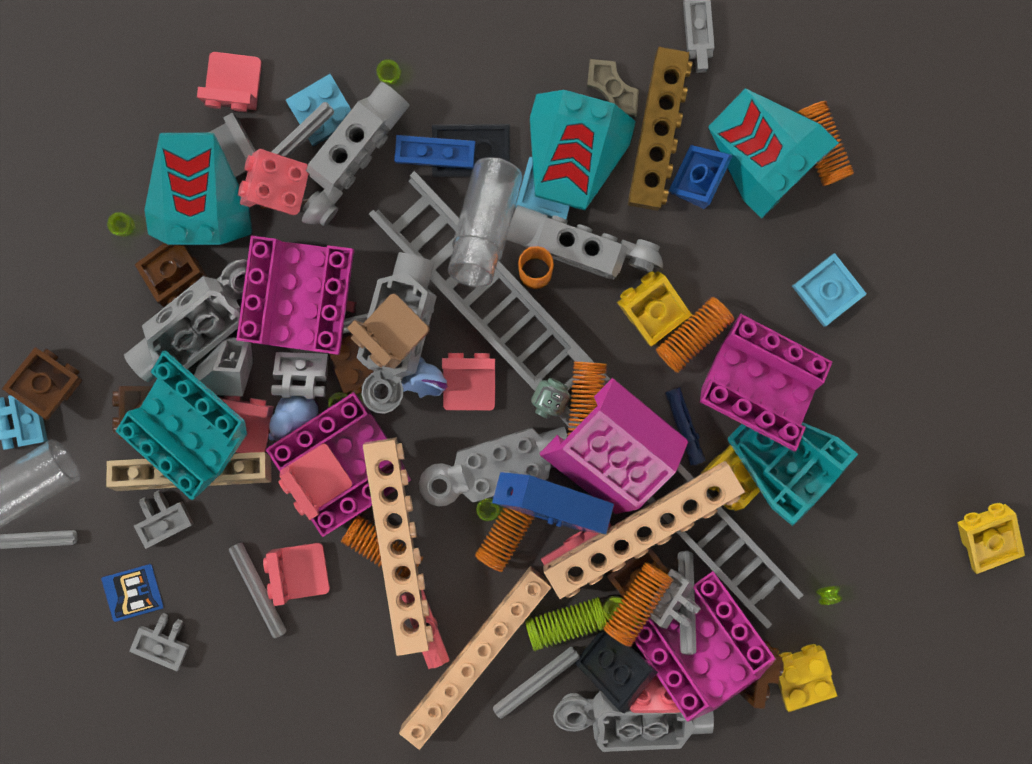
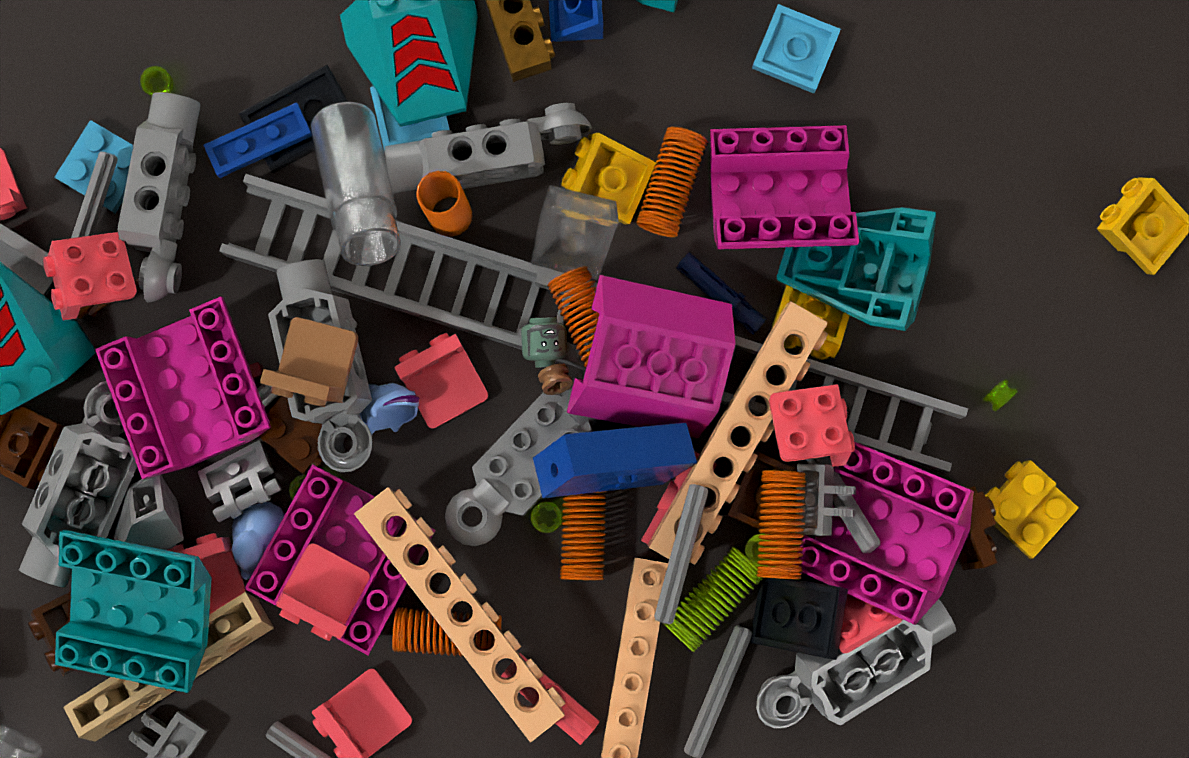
camera: 30 degrees left, 5 degrees down
(544, 427) = (555, 379): none -> medium nougat bush
(562, 589) = (681, 554): none -> light grey axle
(612, 334) = (574, 231): none -> clear slope
(695, 553) = (812, 424): none -> coral bracket

